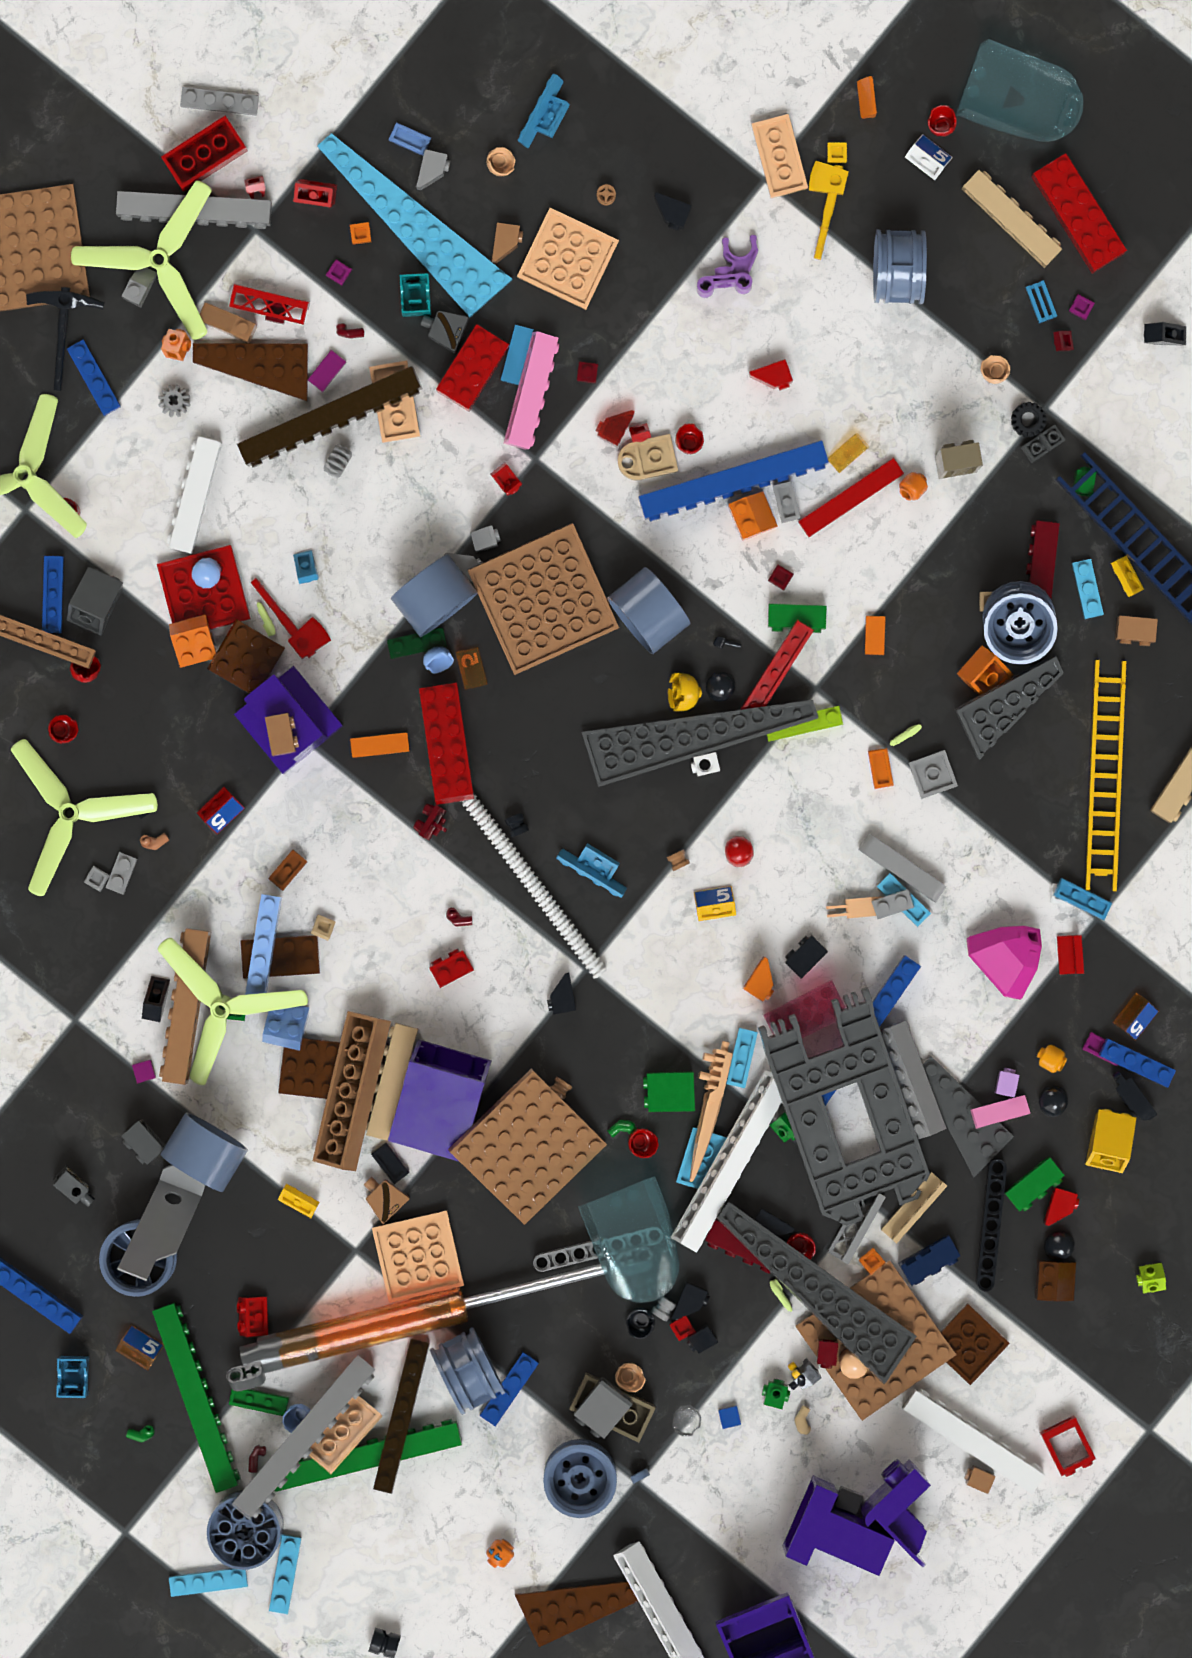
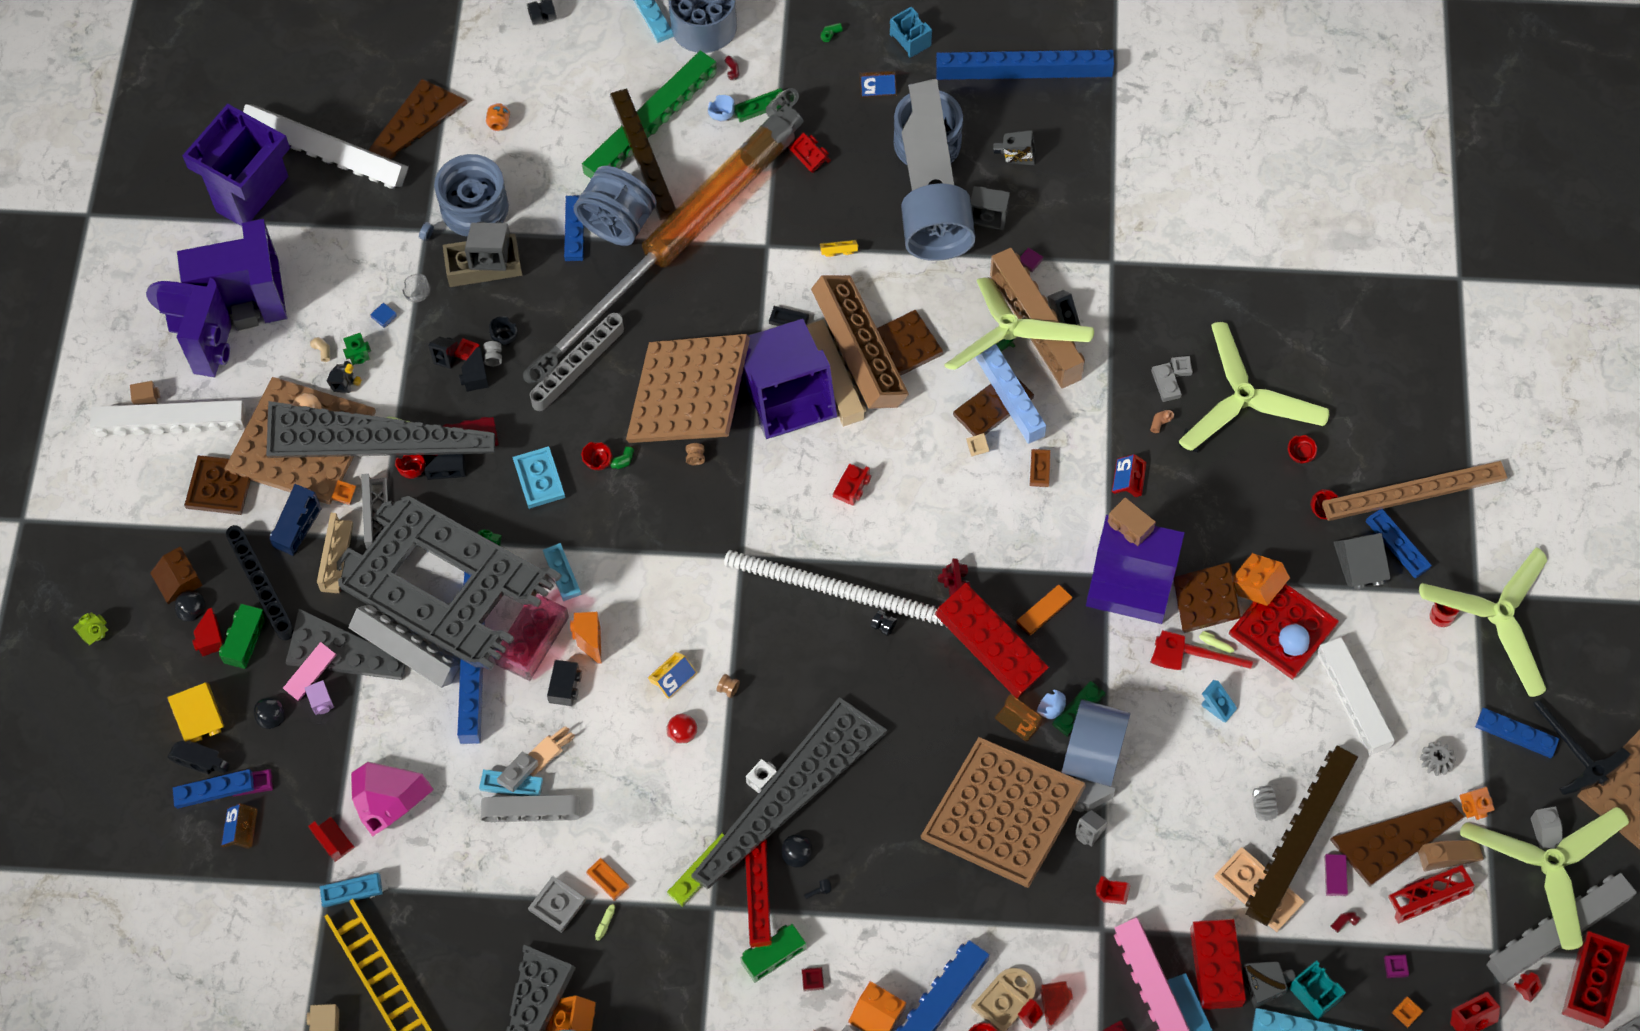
camera: 145 degrees right, 25 degrees down
(195, 1397) = (810, 76): green brick -> none
(286, 1027) = (943, 350): medium blue brick -> none
(303, 1437) = (706, 89): light grey brick -> none
(345, 1434) = (680, 116): light nougat plate -> none
(385, 1198) = (772, 290): medium nougat torso -> none
(417, 1256) = (715, 269): light nougat plate -> none
(456, 919) = (875, 522): dark red arm -> none
(562, 997) = (743, 519): black slope -> none
(594, 866) = (793, 632): dark azure bracket -> none
(630, 1377) = (483, 289): light nougat hair -> none
(634, 1241) = (549, 377): clear light blue windscreen -> none
(648, 610) = (906, 857): sand blue wheel -> none
(669, 1091) = (601, 507): green slope -> none
(684, 692) = (824, 820): yellow cylinder -> none
(712, 1100) = (563, 525): light nougat piece -> none
(729, 1164) = (513, 476): white brick -> none
(827, 1353) = (333, 399): dark red brick -> none
(874, 635) = (692, 987): orange tile -> none
(1052, 1058) = (292, 742): light orange head -> none
(1058, 1429) = (98, 472): red window -> none

